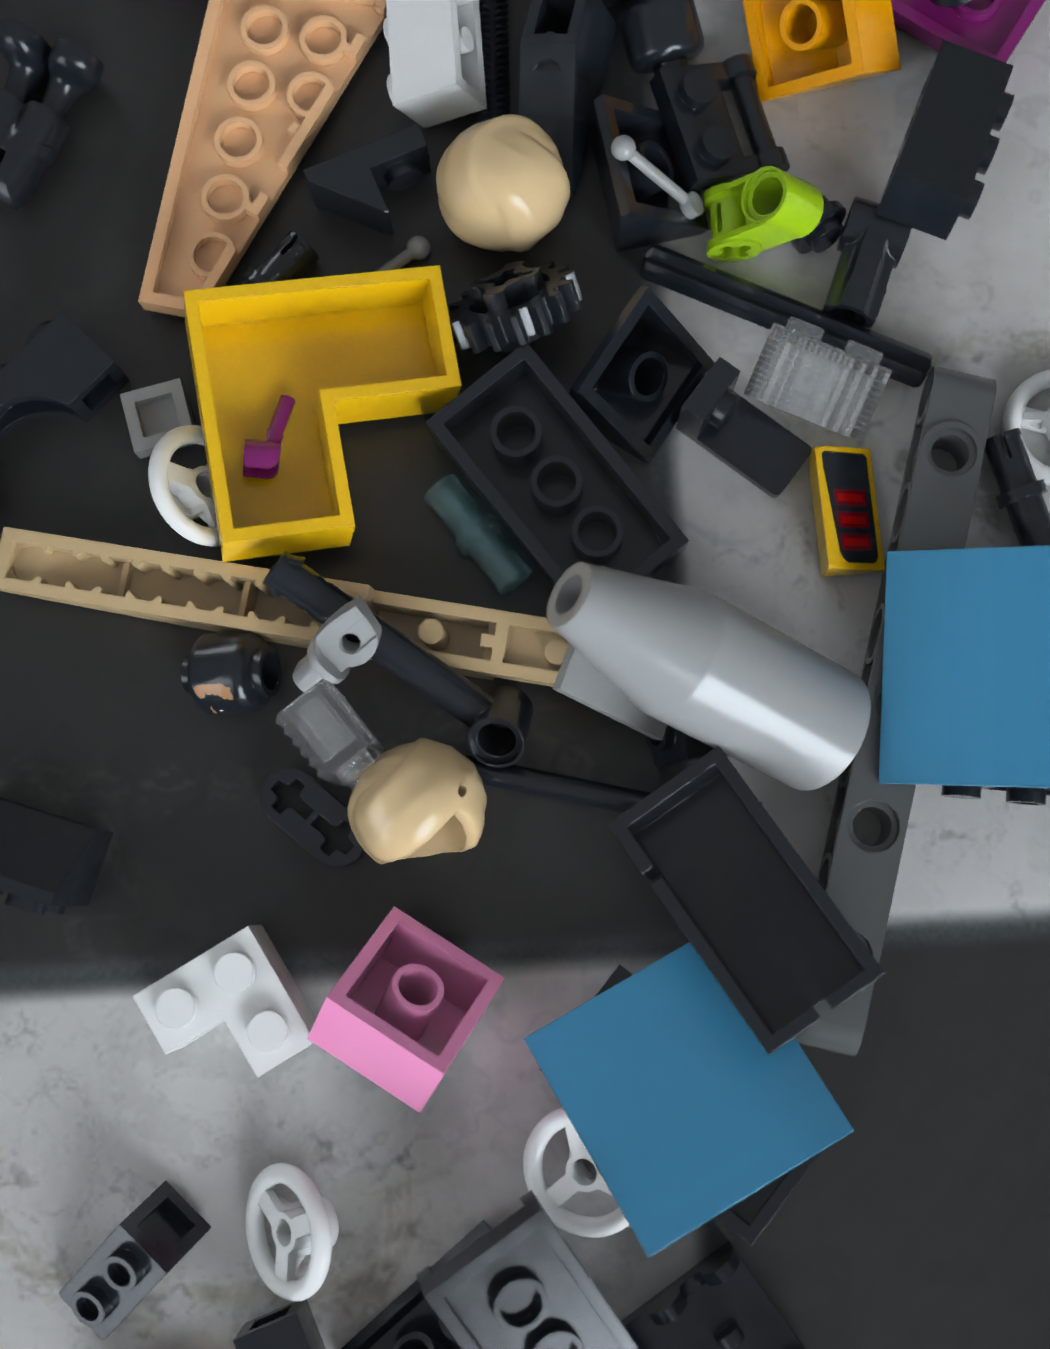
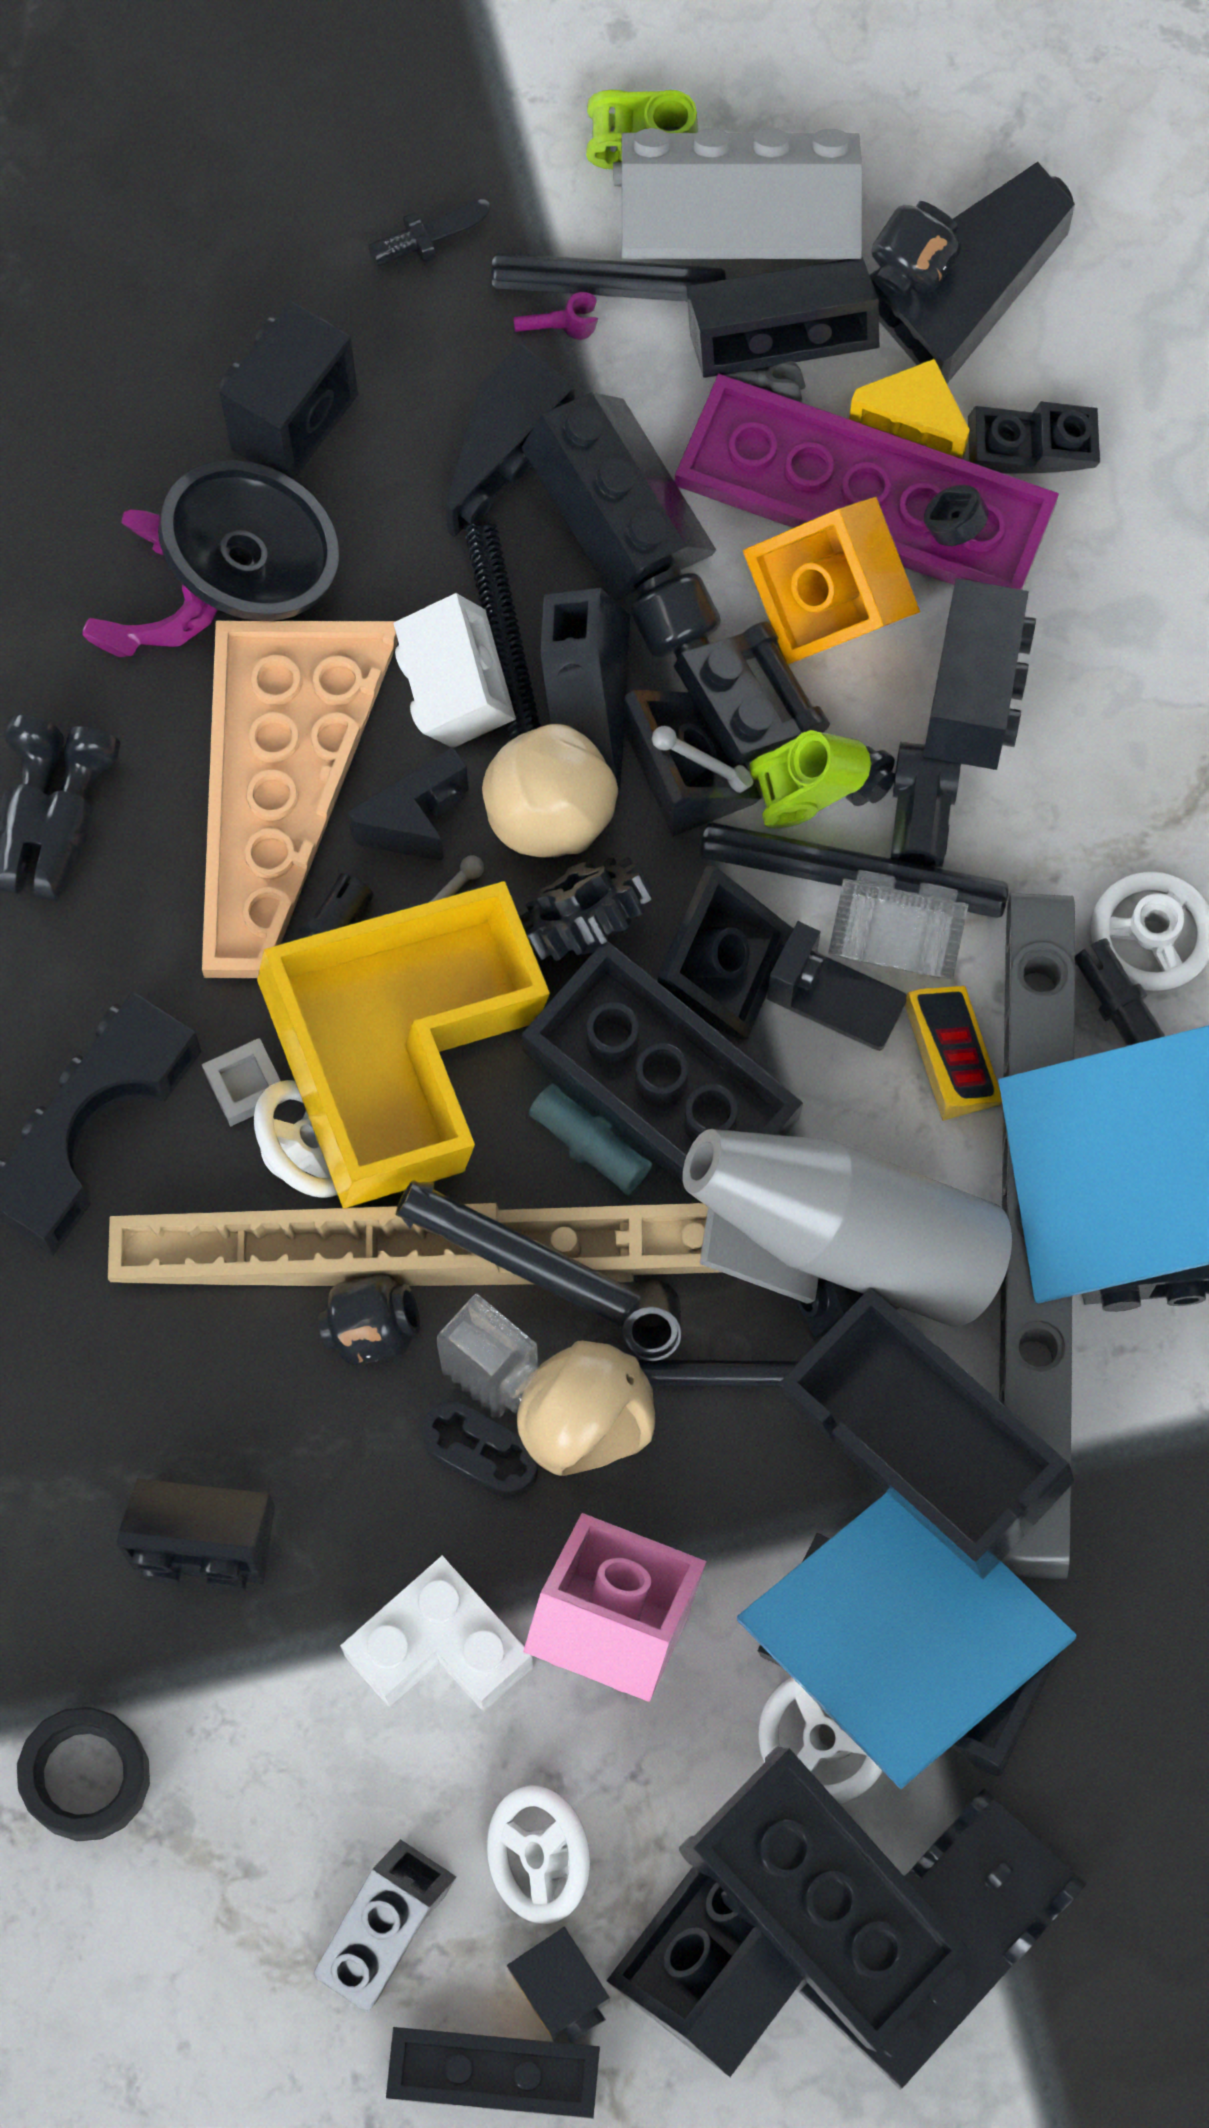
camera: 15 degrees left, 10 degrees down
(262, 456) = (365, 1097): magenta hand -> none
(330, 651) = (477, 1270): light grey piece -> none

